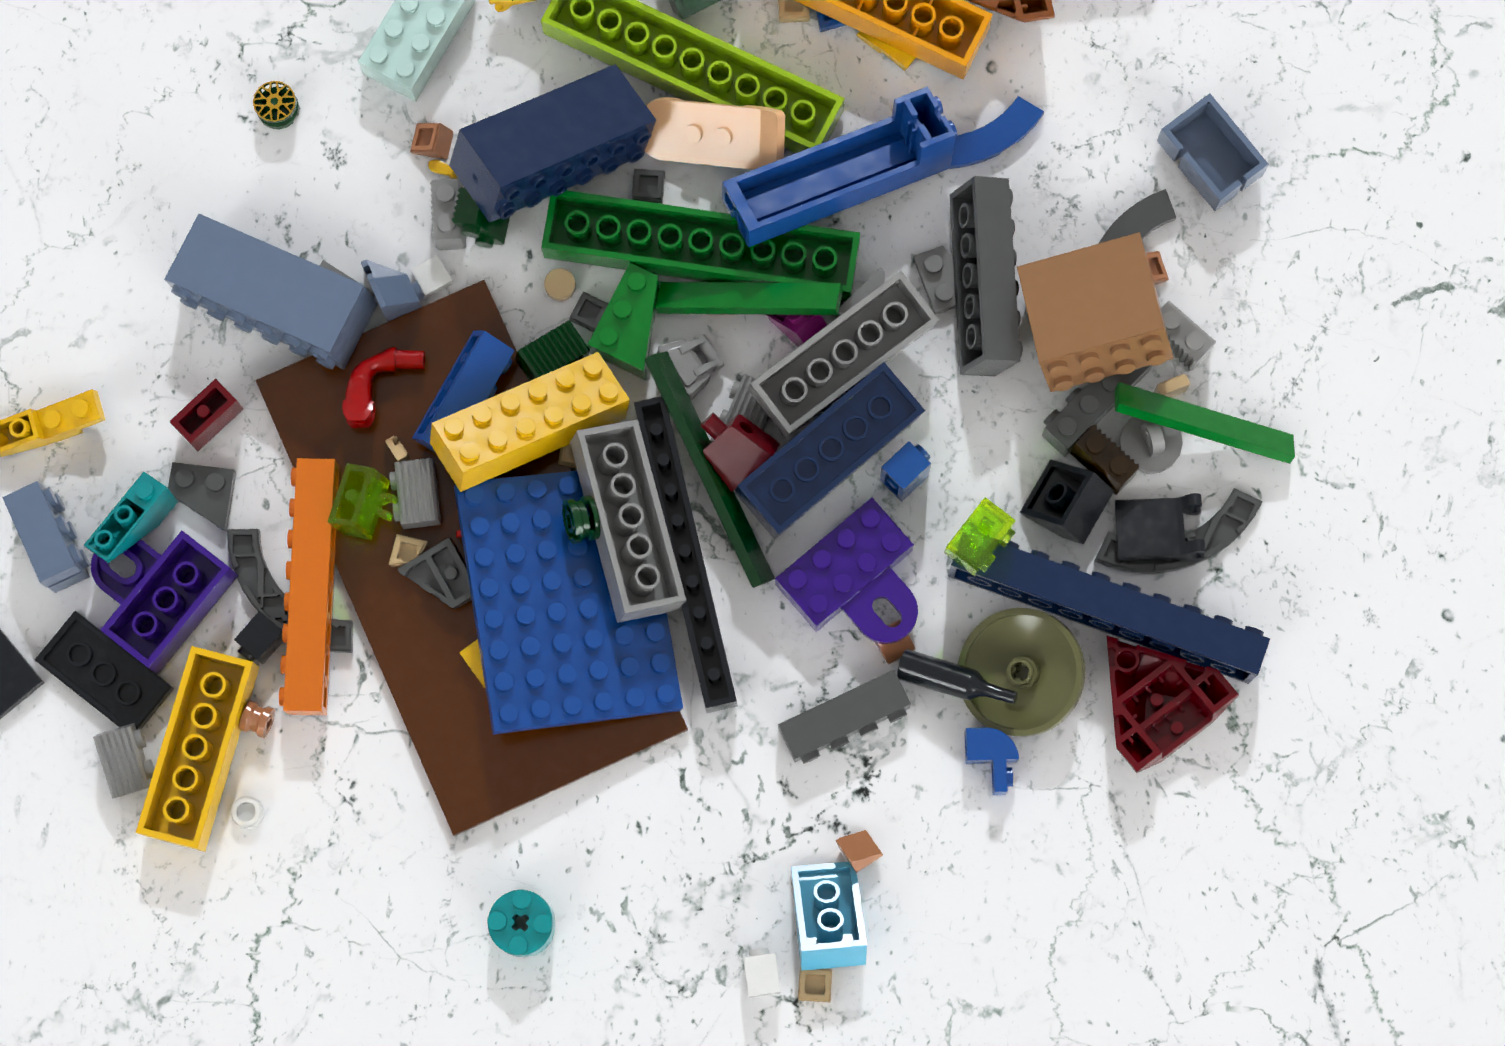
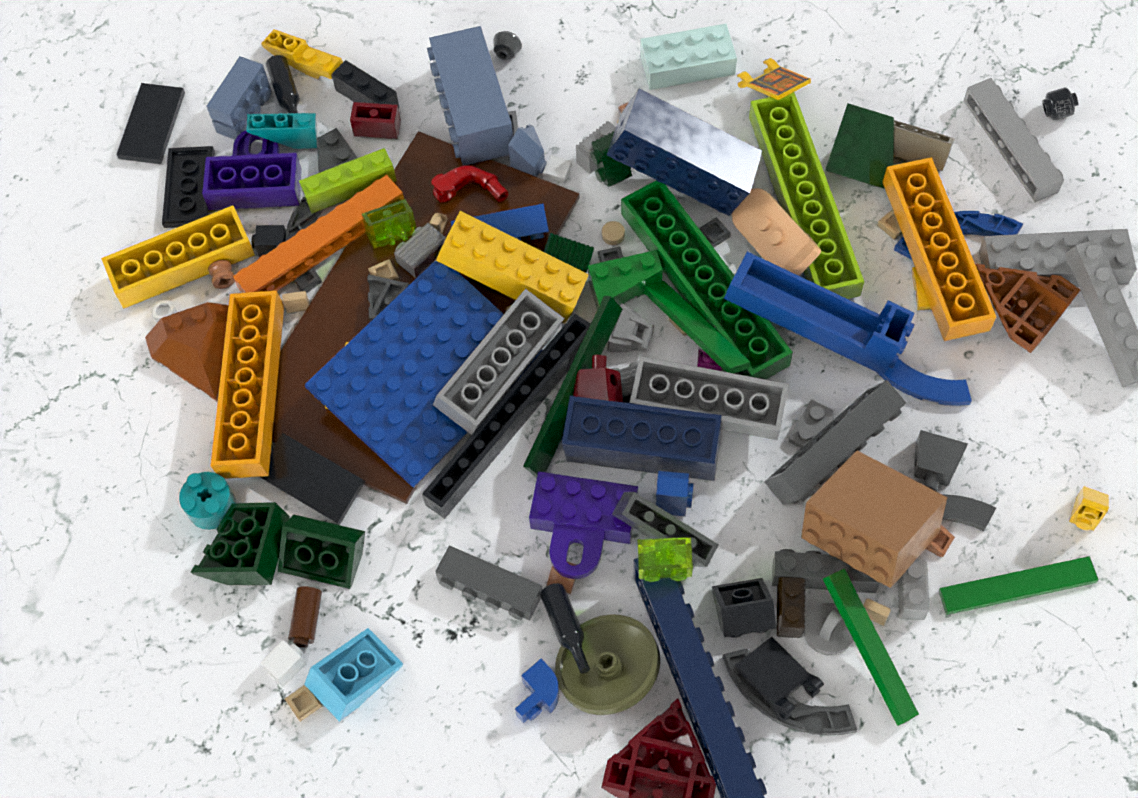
camera: 50 degrees right, 15 degrees down
(65, 476) = (283, 83): none -> black piece
(124, 760) = (143, 224): light grey brick -> none
(151, 395) = (361, 86): none -> black brick
(229, 201) = (506, 45): none -> dark grey cone
(262, 502) = (345, 180): none -> lime brick
(276, 105) = (581, 28): dark green wheel -> none
(323, 806) = (192, 345): none -> dark orange wedge
(361, 666) = (295, 301): none -> tan tile
(427, 786) = (248, 385): none -> light orange brick
(581, 519) = (473, 333): dark green wheel -> none
(583, 803) = (312, 478): none -> black tile
(606, 921) = (245, 545): none -> dark green wedge
(673, 851) = (320, 551): none -> dark green slope
(730, 918) = (305, 616): none -> reddish brown brick
(859, 849) = (410, 658): nougat slope -> none
(938, 510) = (660, 524): none -> dark grey brick
(1075, 198) = (937, 459): none -> dark grey torso
(1212, 152) = (1046, 513): sand blue piece -> none
(1242, 106) = (1089, 508): none -> yellow slope
(1251, 239) = (1018, 585): none -> green tile

